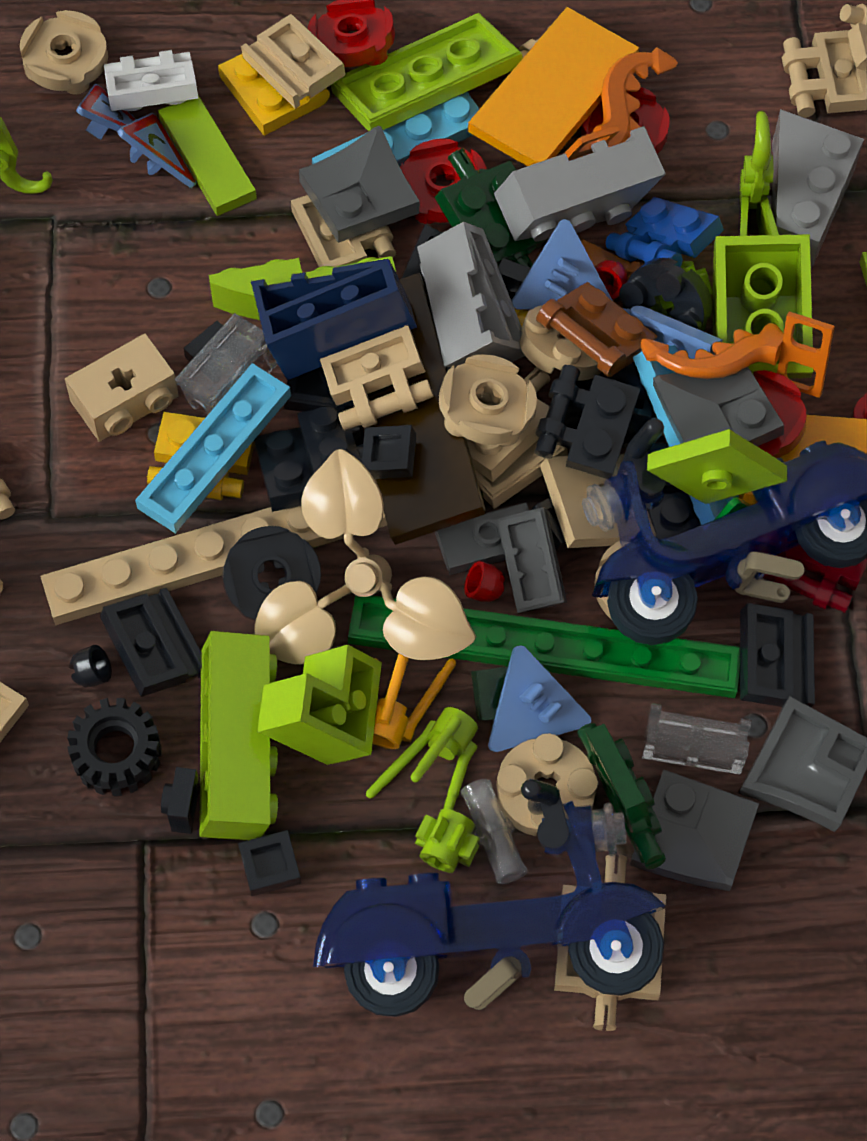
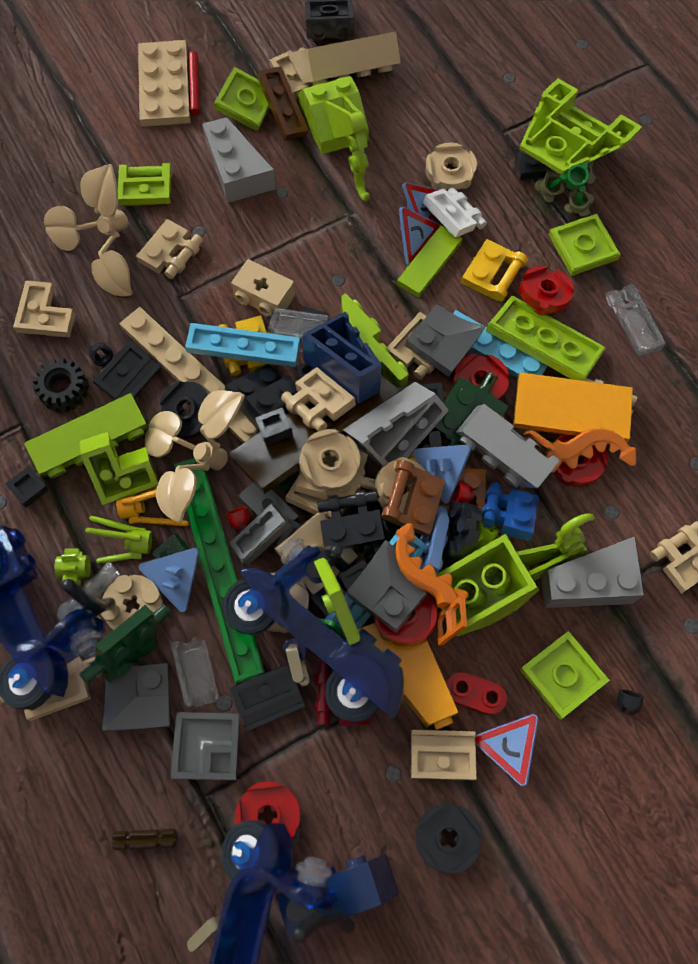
camera: 65 degrees right, 5 degrees up
(181, 799) = (40, 426): black plate -> none
(293, 60) = (505, 268): tan plate -> none

